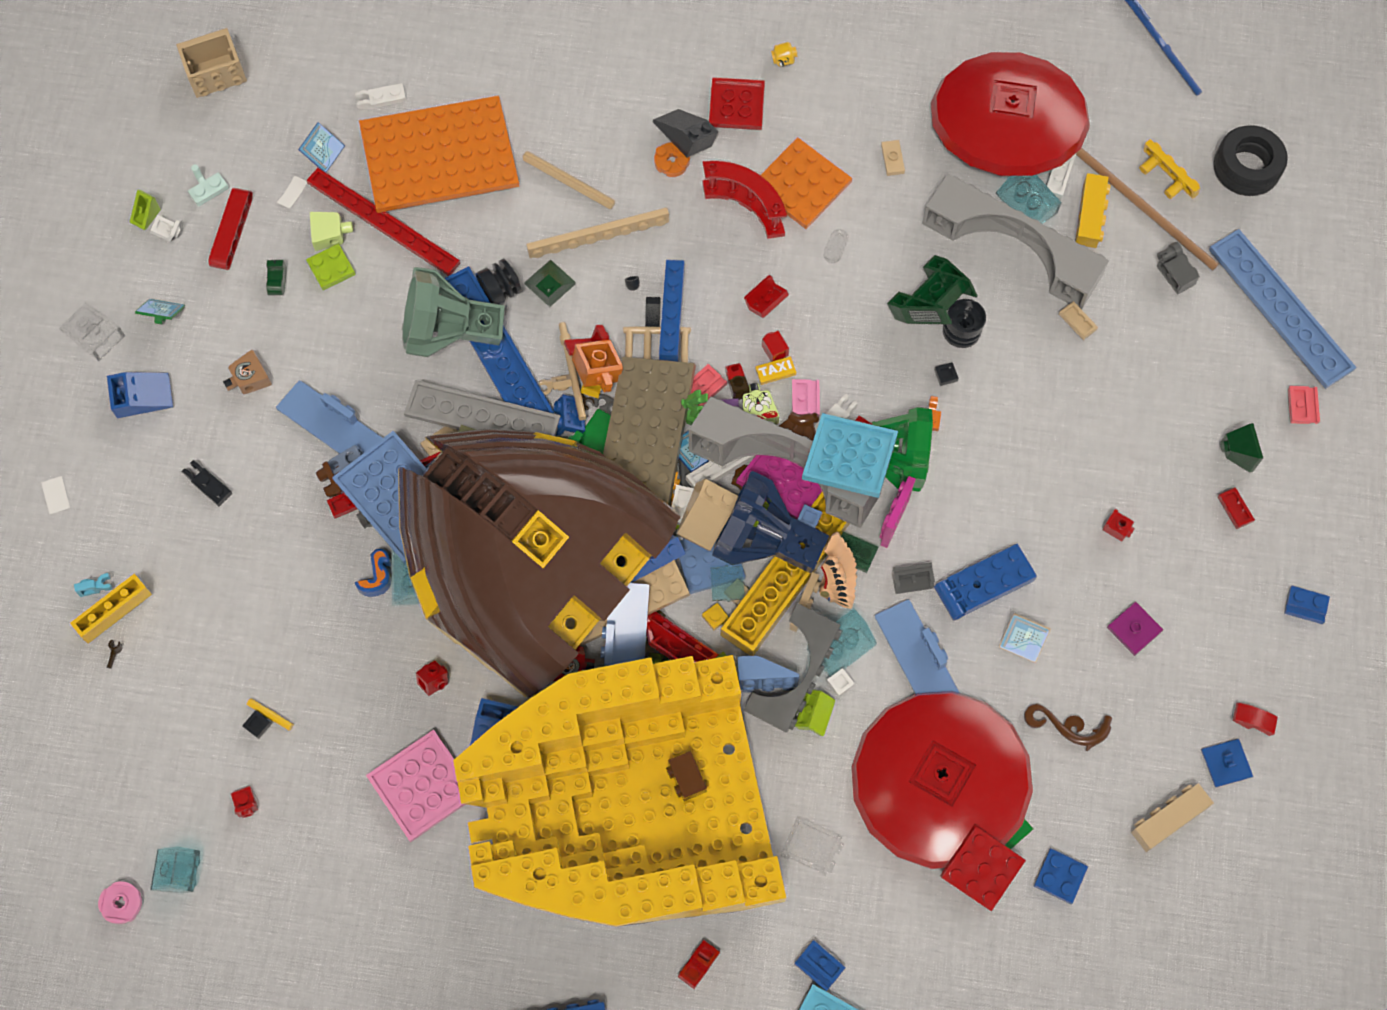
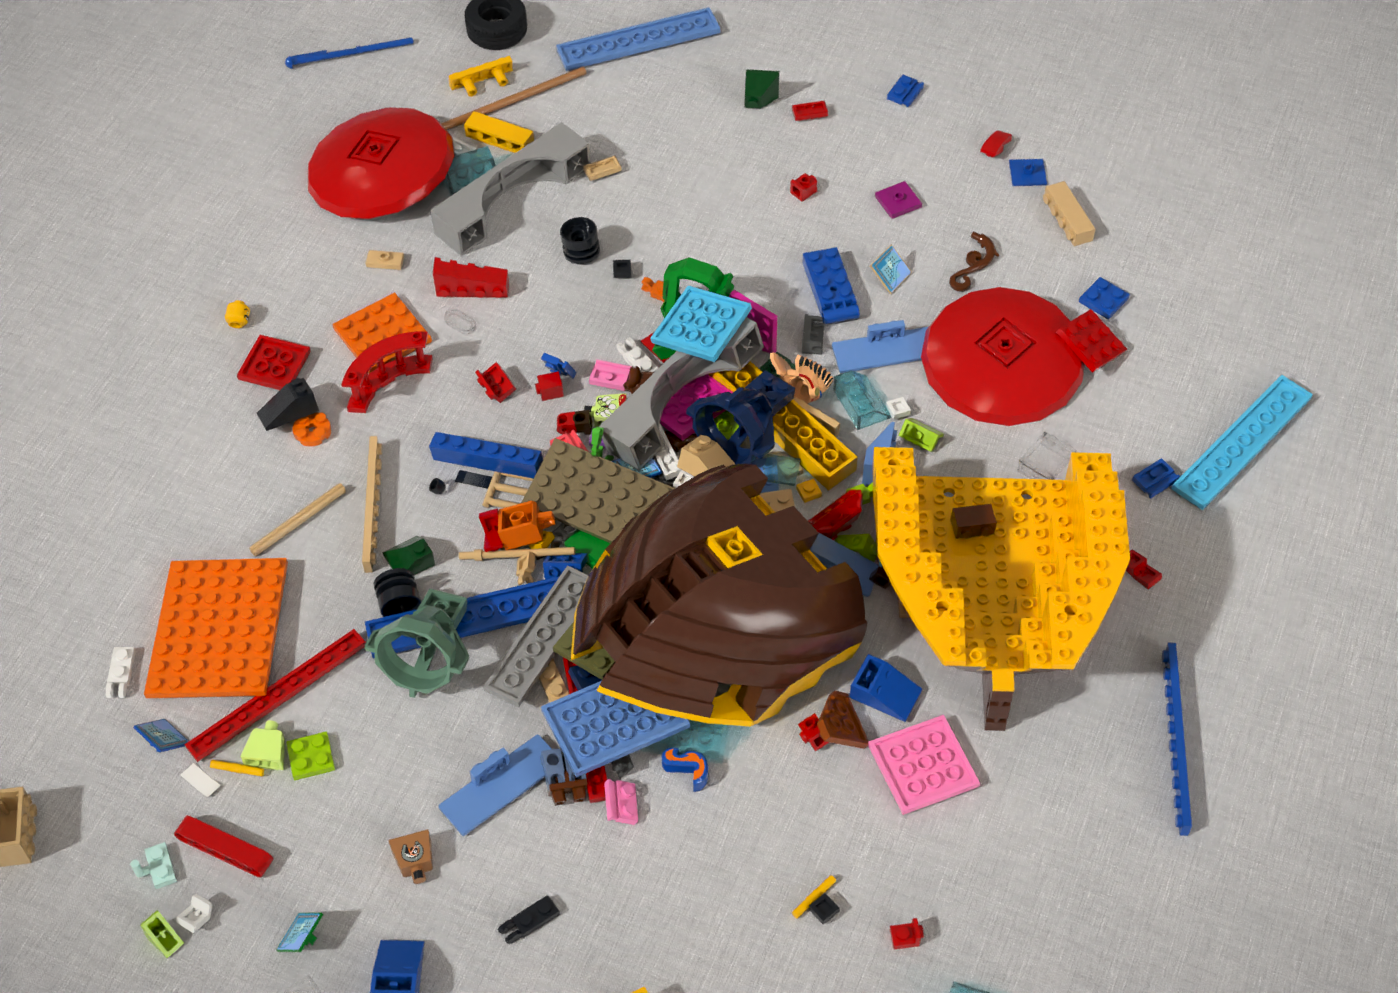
camera: 75 degrees left, 15 degrees down
(276, 277) = (304, 809): dark green leg -> none
(307, 209) = (237, 768): none -> yellow piece
(329, 527) = (621, 801): none -> bright pink plate
(444, 698) = (840, 722): none -> dark orange plate
(775, 370) = (573, 393): yellow tile -> none
(796, 346) = (556, 364): none -> blue plate
(810, 516) = (739, 380): medium blue plate -> none
(820, 635) = (863, 399): dark grey arch -> none
(882, 238) = (469, 280): none -> red wedge
(934, 296) = (549, 247): dark green wedge -> none
(1177, 268) = (578, 92): dark grey hinge -> none
(1303, 405) = (731, 47): coral plate -> none

